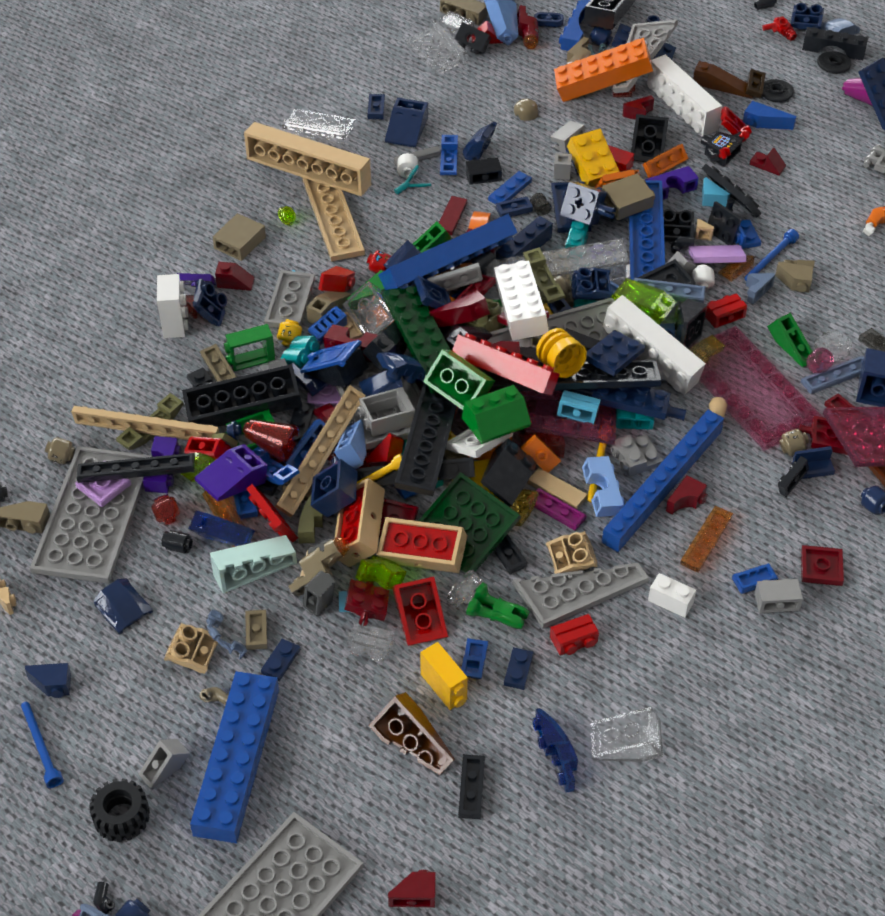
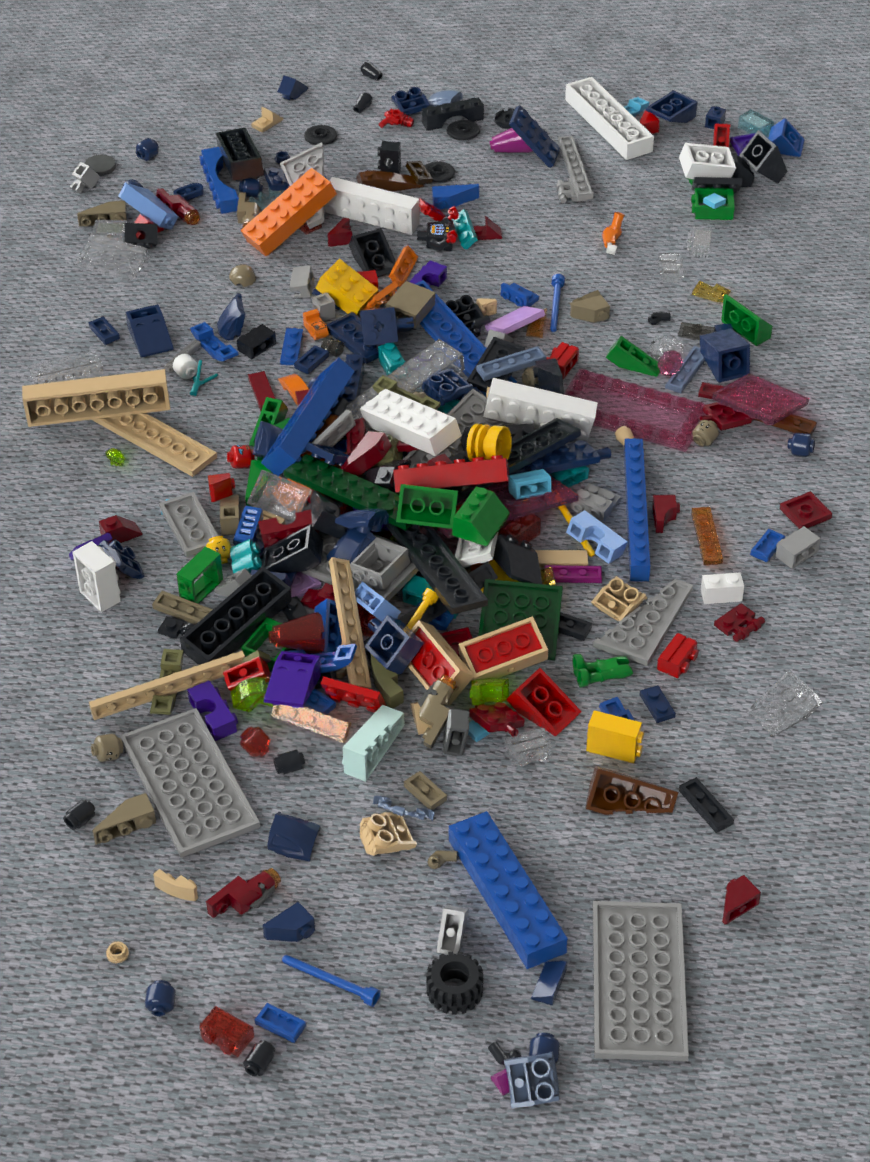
camera: 35 degrees left, 5 degrees down
(41, 631) = (243, 894): none -> dark red plate
(103, 491) = (178, 751): lavender tile -> none
(135, 467) = (200, 720): black tile -> none
(197, 860) = (549, 982): none -> dark blue slope
(220, 529) = (324, 730): clear blue slope -> none
(234, 430) = (259, 644): dark blue plate -> none
(239, 236) = (89, 494): dark tan brick -> none
(280, 659) = (466, 801): dark blue plate -> none
(330, 356) = (287, 545): blue container -> none
(386, 450) = (405, 597): red slope -> none
(462, 591) = (566, 667): clear plate -> none
(542, 455) = (525, 532): orange plate -> none
(544, 178) = (314, 324): none -> orange leg
(557, 744) = (737, 737): clear blue slope -> none
(614, 352) = (524, 426): dark blue plate -> none
(650, 300) = (509, 372): clear neon green slope -> none
(661, 630) = (736, 618): none -> dark red plate
(697, 12) = (313, 135): none -> black wheel
(704, 276) = (522, 339): white head -> none
(707, 348) = (579, 390): clear yellow slope -> none
(712, 192) = (466, 275): medium azure slope -> none
(724, 222) = (502, 290): black plate -> none
(734, 190) = (480, 264): black plate -> none
(739, 59) = (389, 157): none -> black brick
(750, 151) = (465, 229): none -> teal plate
(758, 285) = (568, 328): sand blue slope -> none
(792, 478) = (728, 450): black plate -> none
(818, 461) = (732, 441): dark blue panel -> none
(853, 312) = (656, 317): none -> black arm

